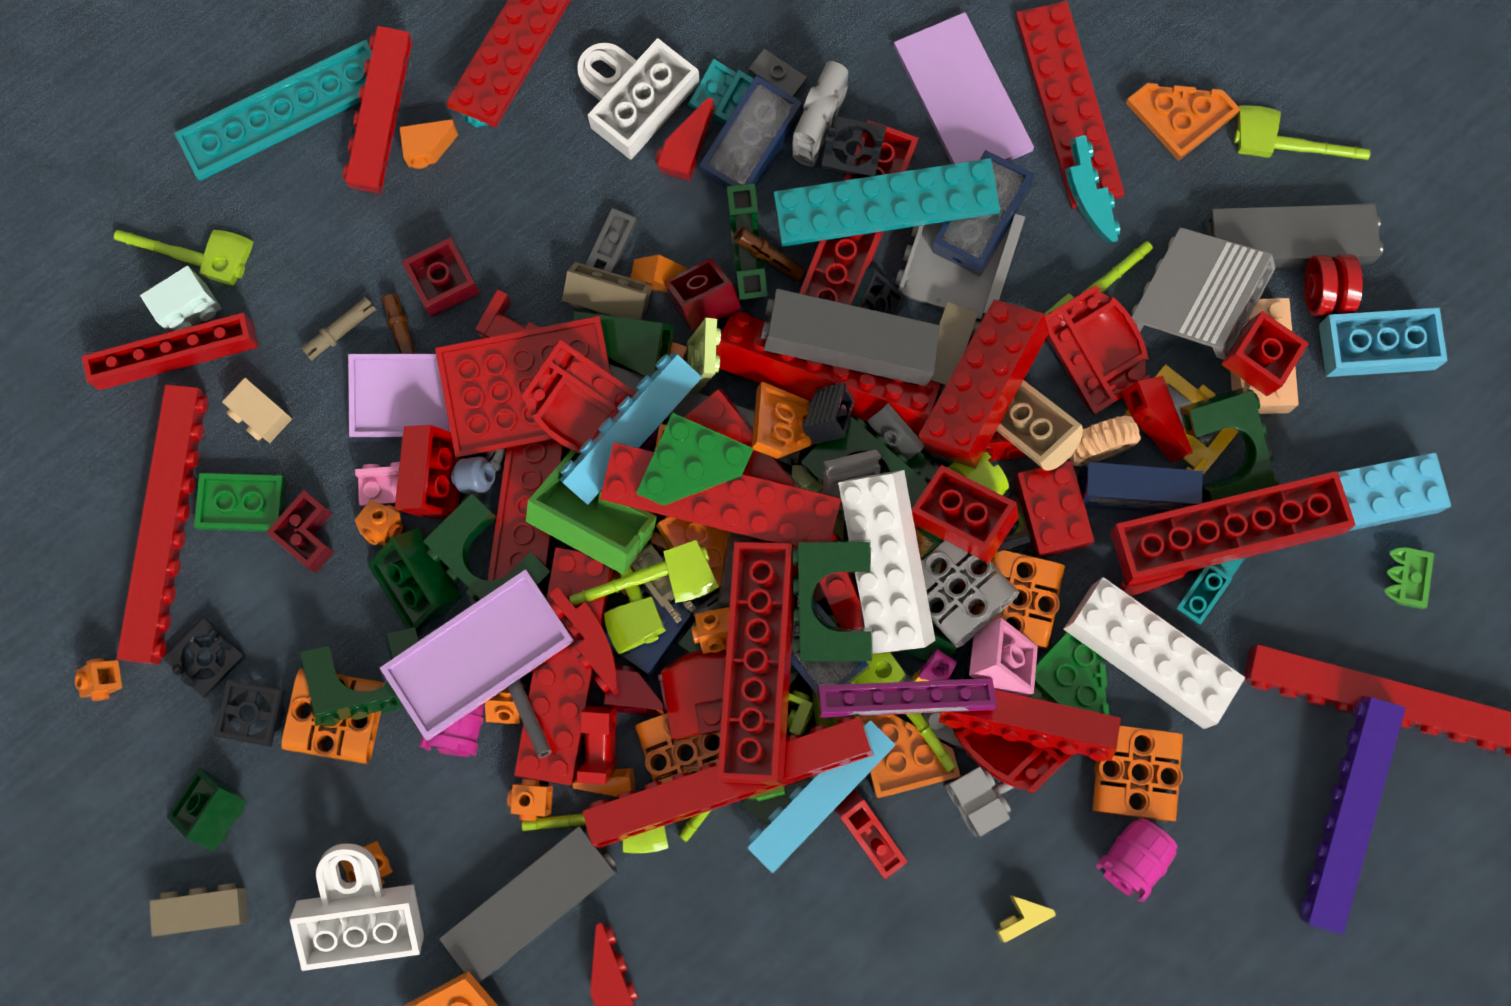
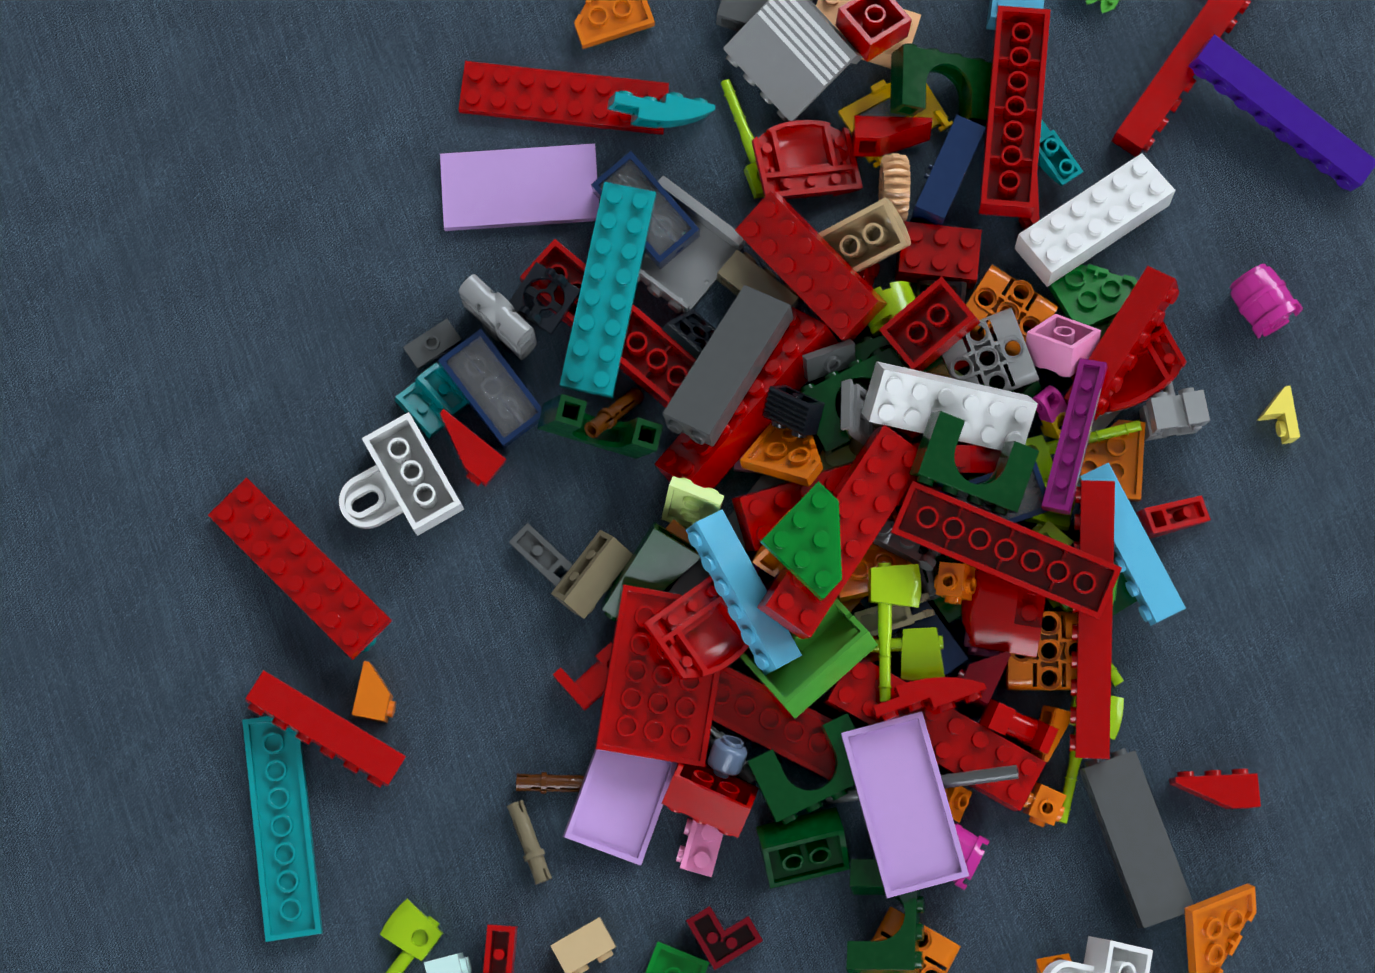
camera: 75 degrees left, 0 degrees up
(379, 523) = (739, 861): orange brick -> none
(440, 277) = (518, 725): dark red brick -> none
(655, 271) = (588, 522): orange slope -> none
(702, 294) = (630, 486): dark red brick -> none
(1153, 804) = (1220, 271): orange connector -> none

